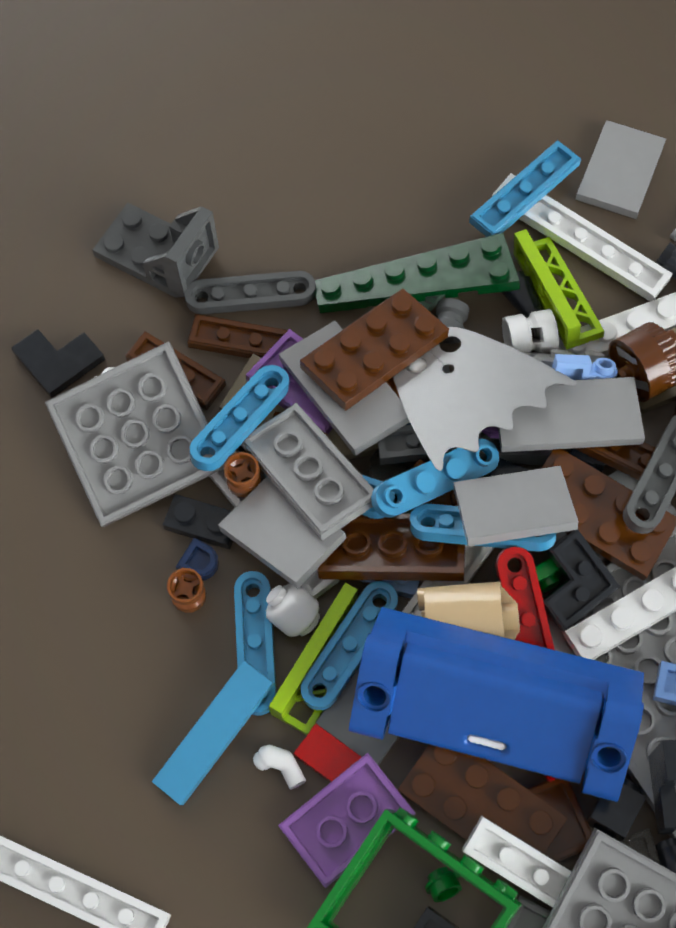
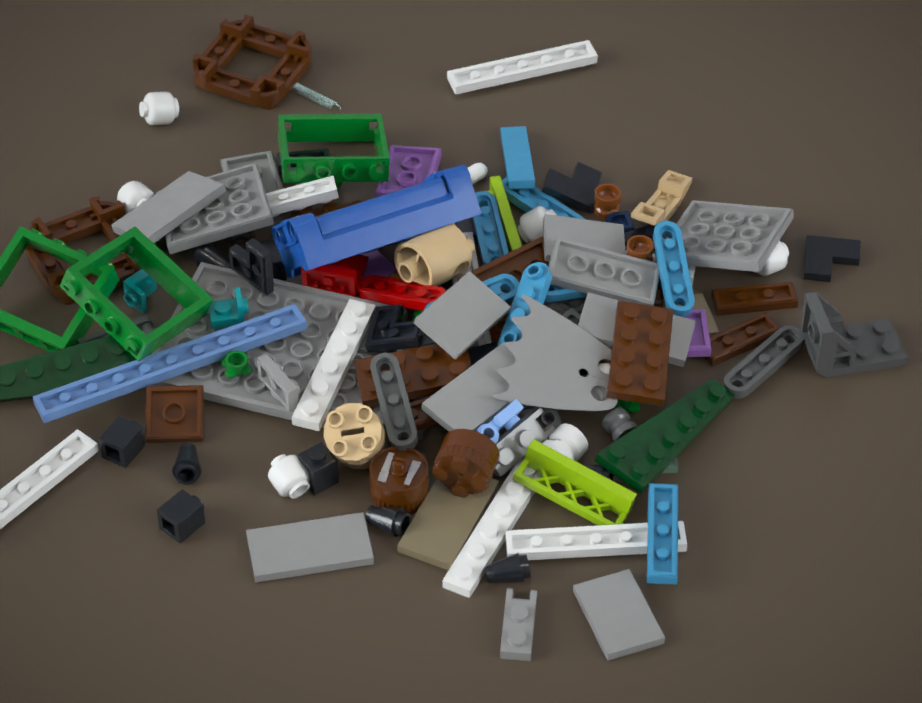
camera: 135 degrees right, 20 degrees down
(139, 543) = (665, 200): none -> tan slope
(195, 631) = (575, 191): none -> black tile

